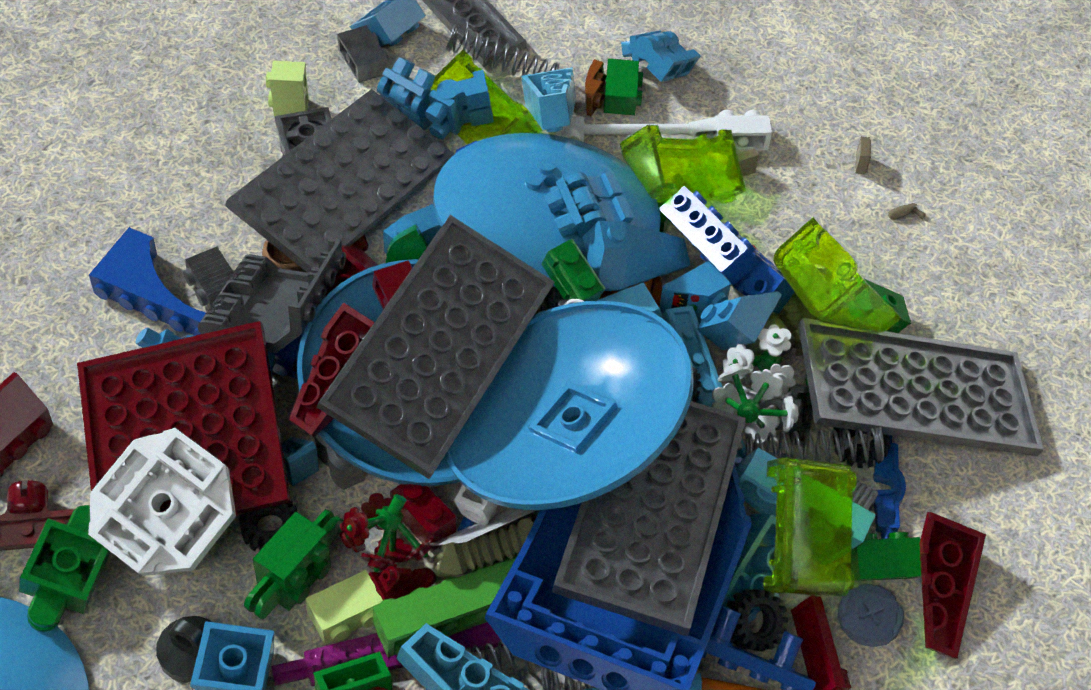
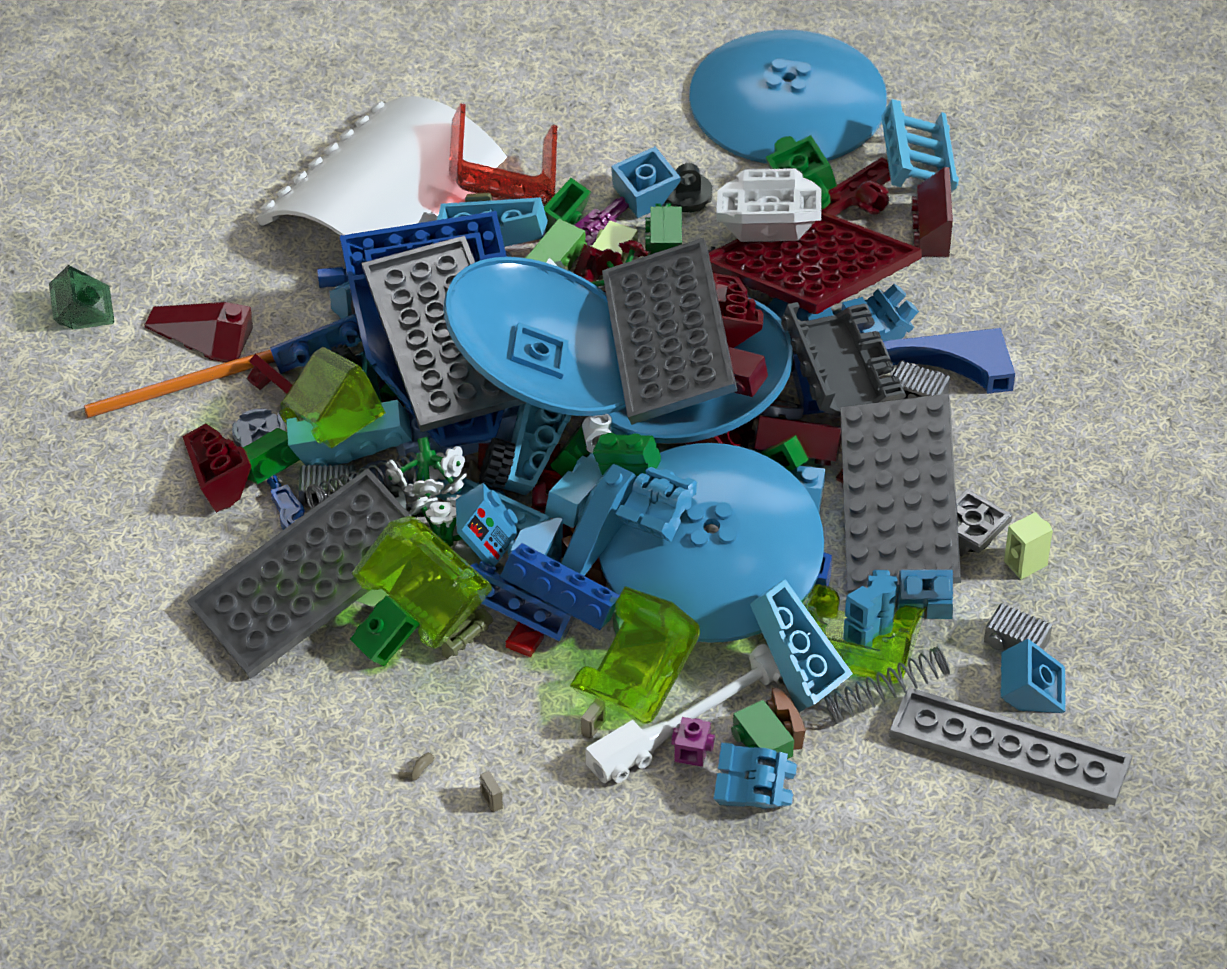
camera: 150 degrees right, 5 degrees down
(681, 103) = (692, 741): none -> magenta brick

